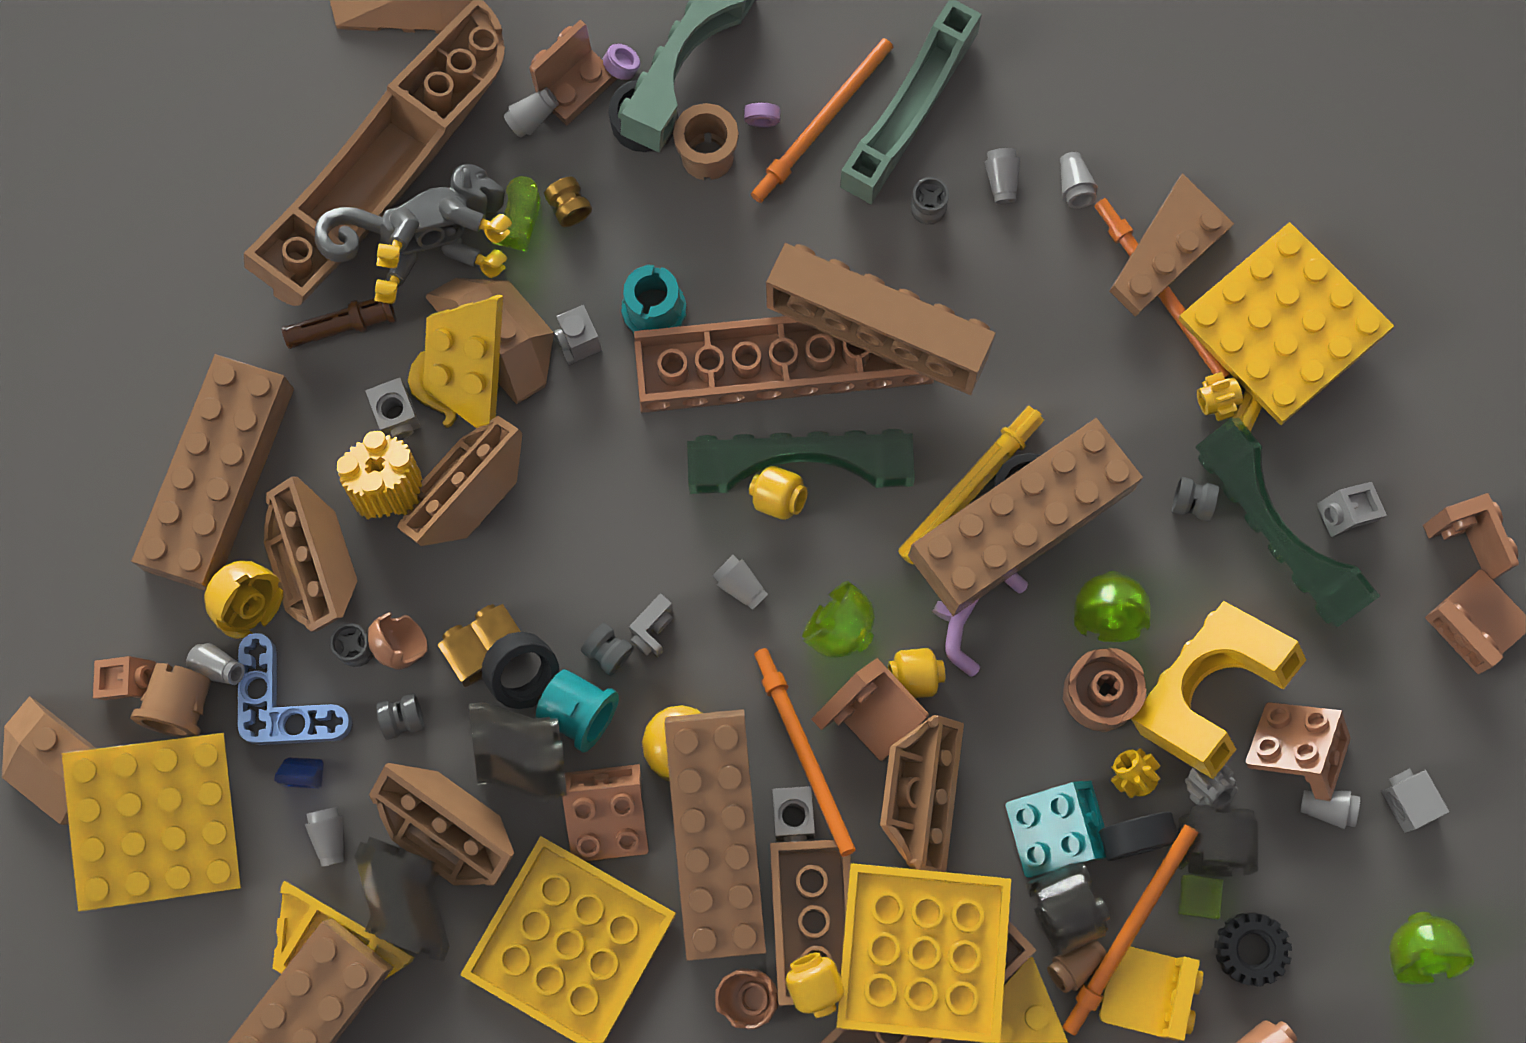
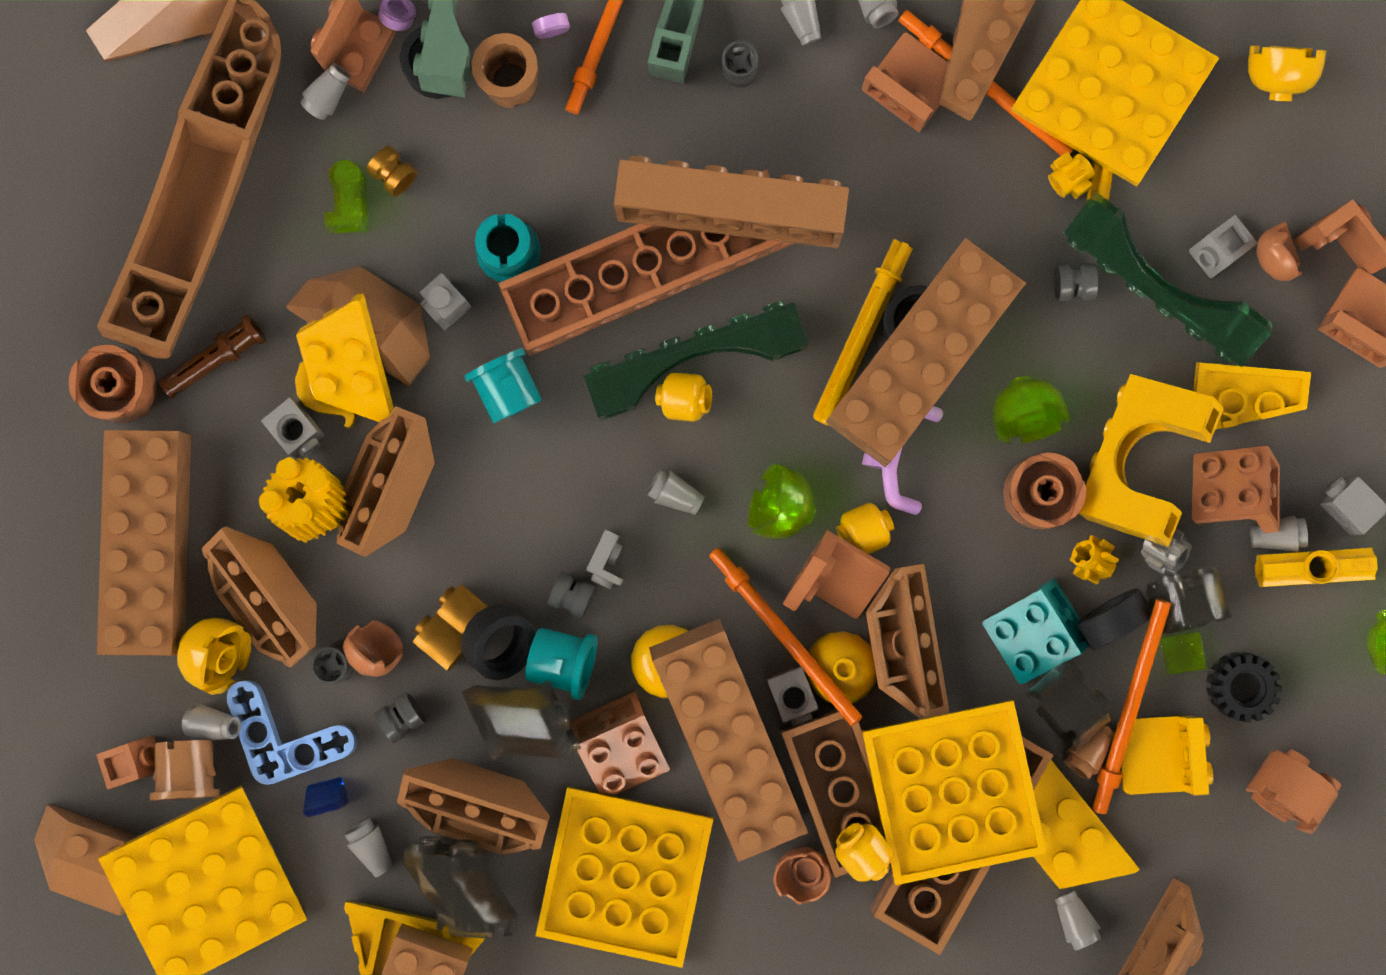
camera: 10 degrees left, 10 degrees up
(255, 314) = (110, 364): none -> nougat brick
(423, 223) = (261, 237): dark grey animal -> none
(608, 428) = (505, 385): none -> teal piece
(858, 799) = (847, 662): none -> yellow cylinder
(1085, 264) = (908, 81): none -> nougat bracket
(1341, 657) = (1252, 391): none -> yellow wing
(1381, 856) = (1336, 565): none -> yellow piece
(1404, 530) = (1278, 254): none -> nougat hair
(1457, 358) = (1284, 70): none -> yellow cylinder

